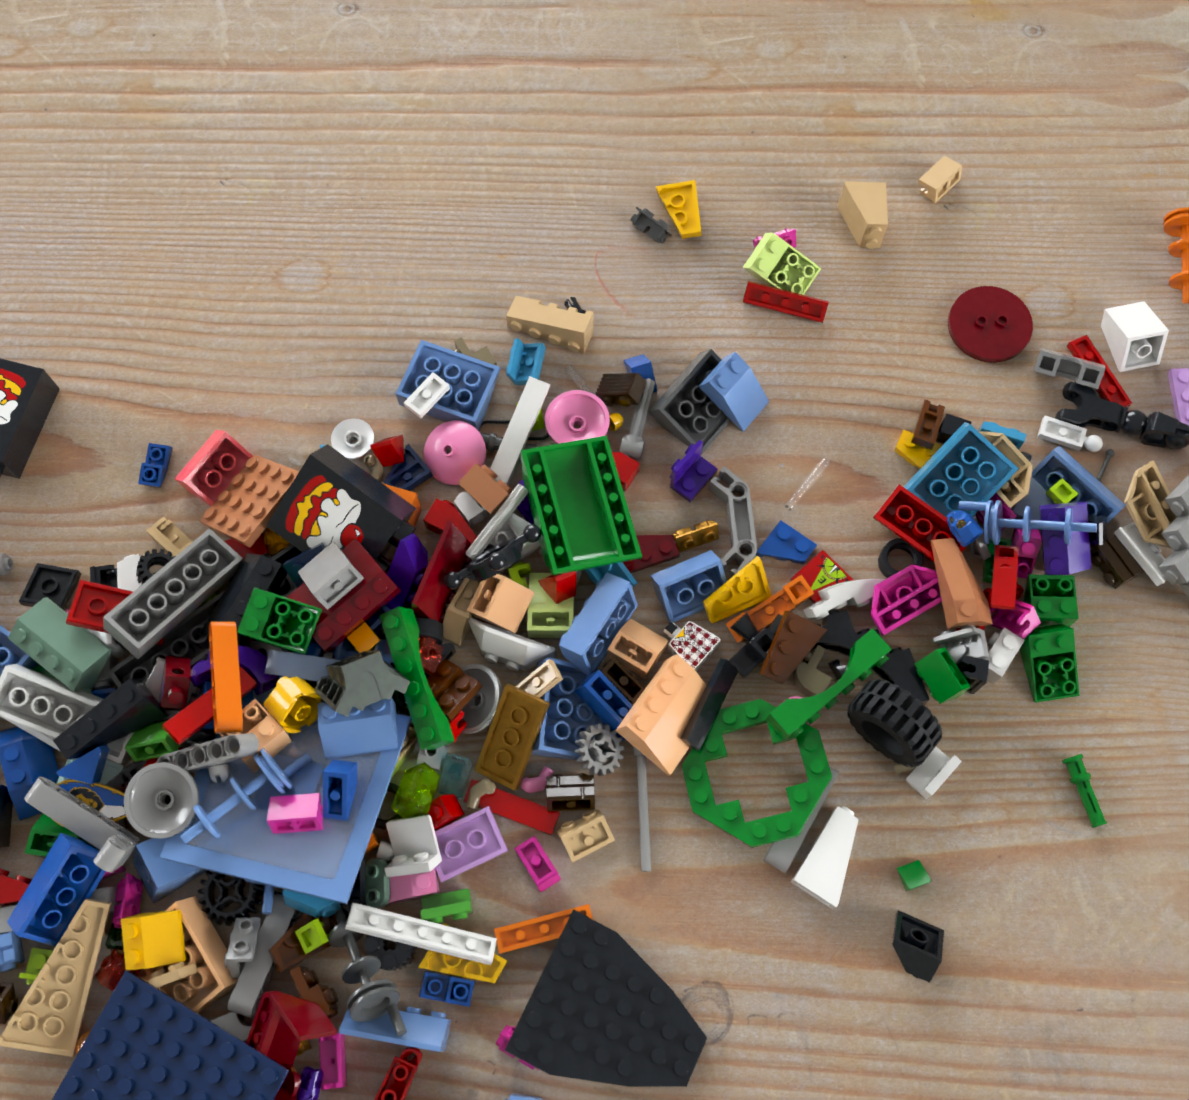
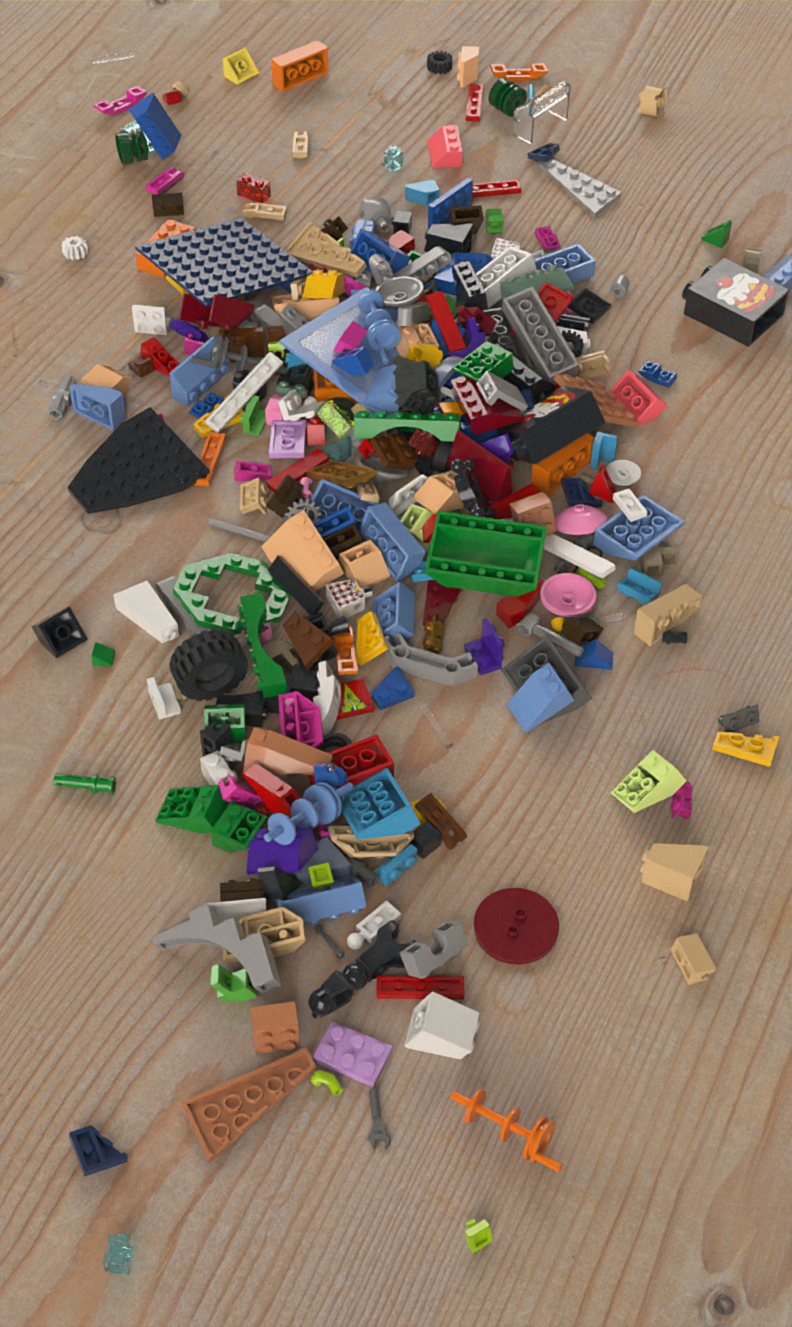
camera: 115 degrees right, 20 degrees down
(225, 677) = (457, 328): orange beam -> none
(479, 790) = (317, 453): dark tan arm -> none
(497, 521) = (499, 507): white axle -> none
(785, 301) = (613, 778): red tile -> none

